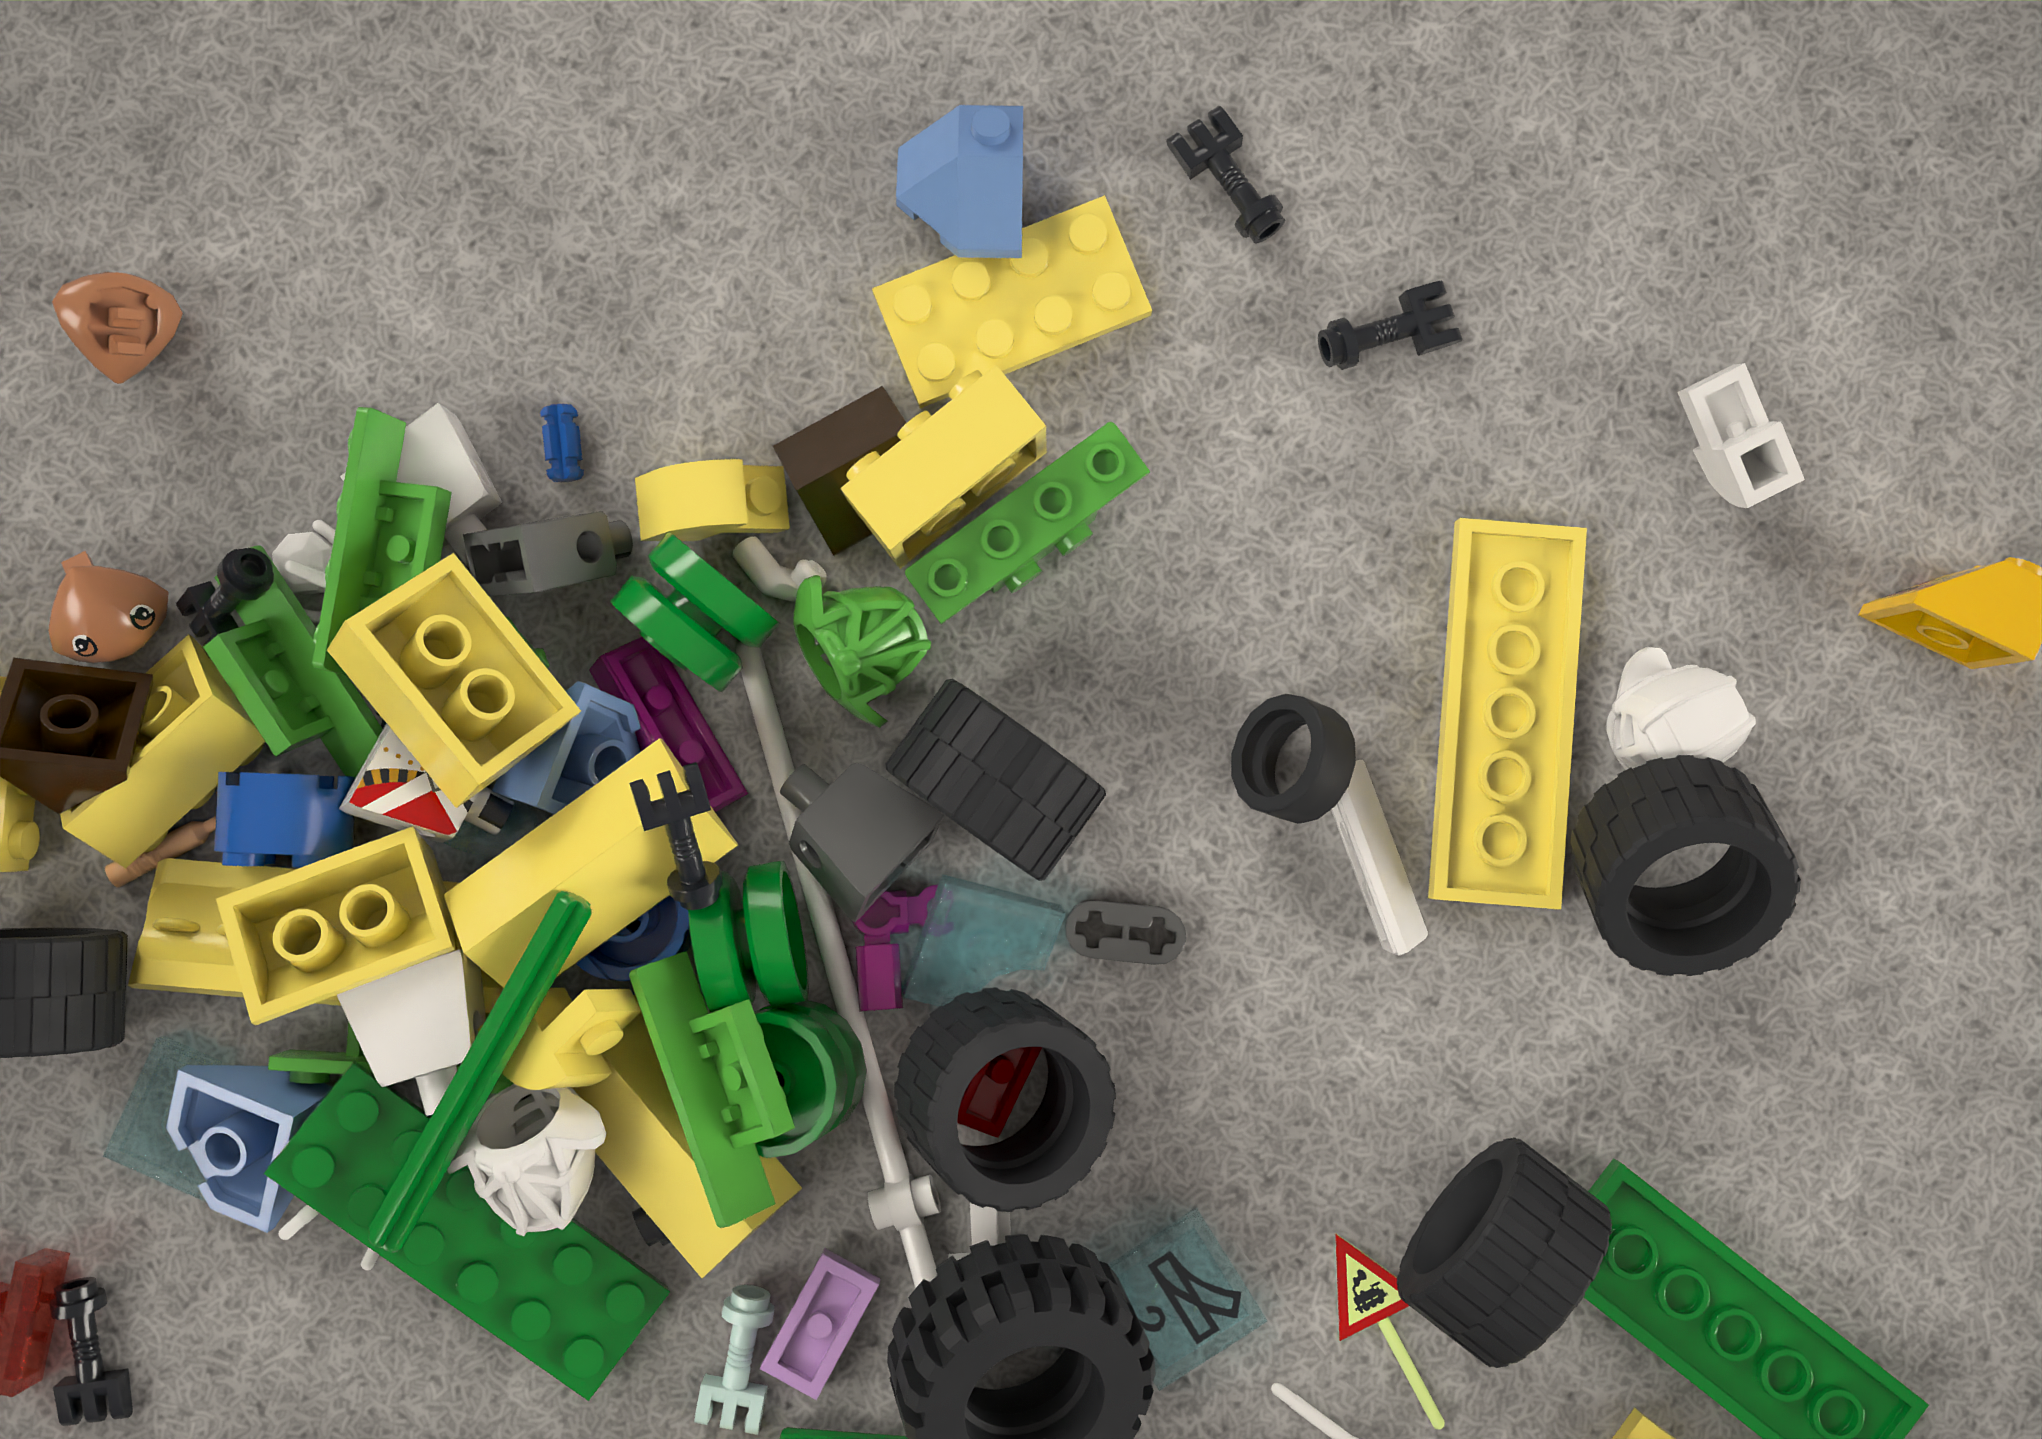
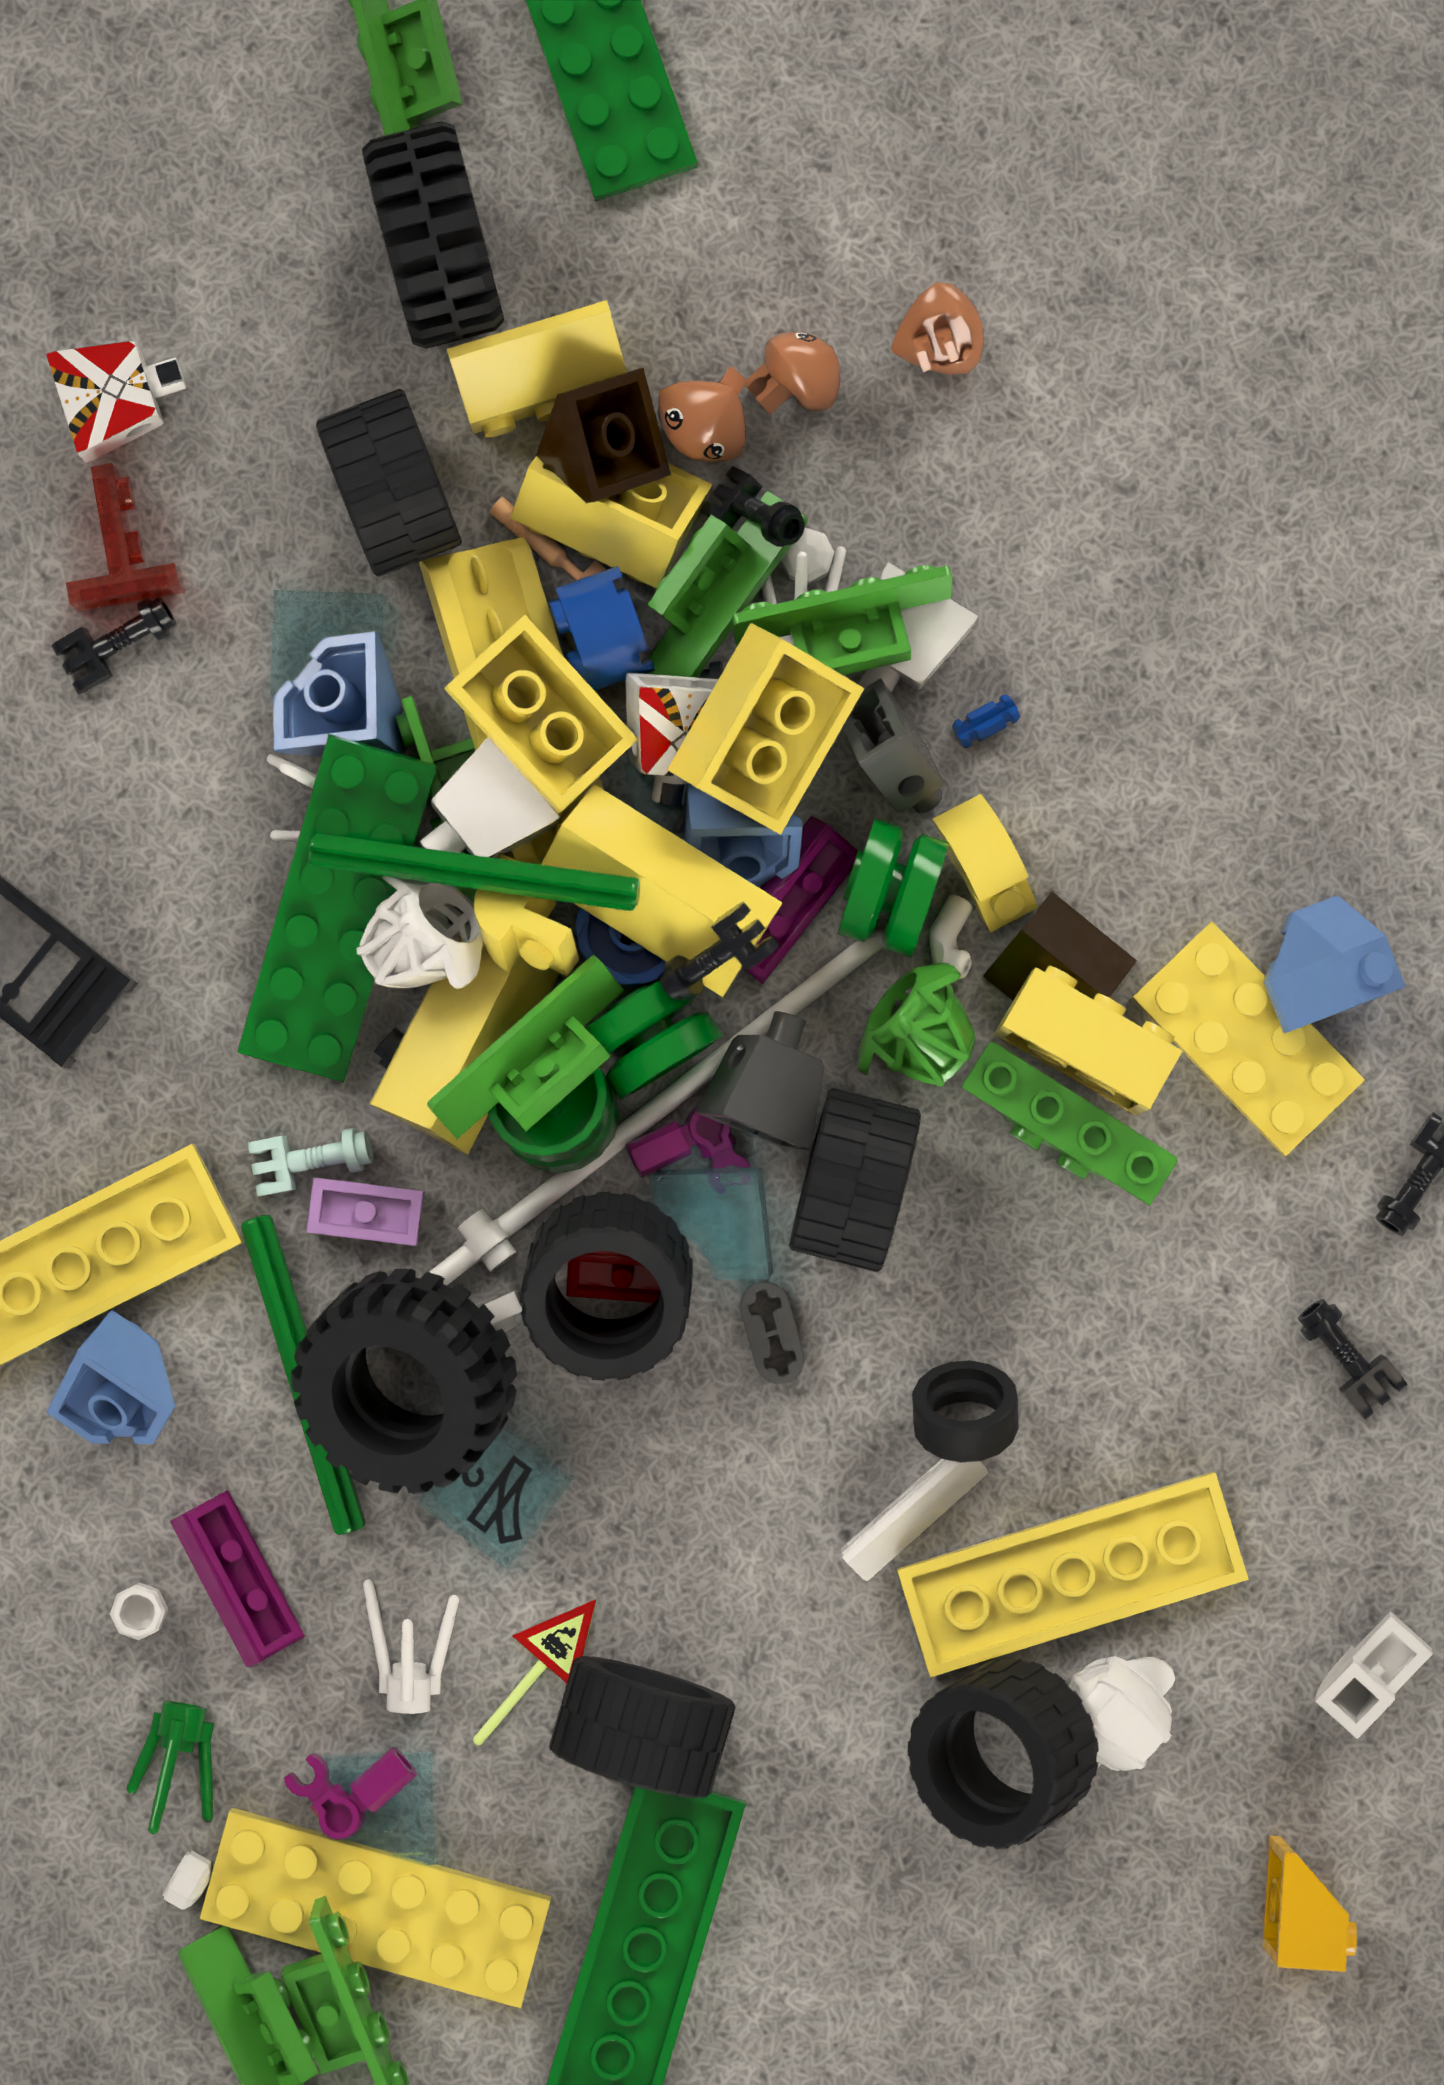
camera: 75 degrees right, 0 degrees up
(91, 490) = (799, 367): none -> nougat piece

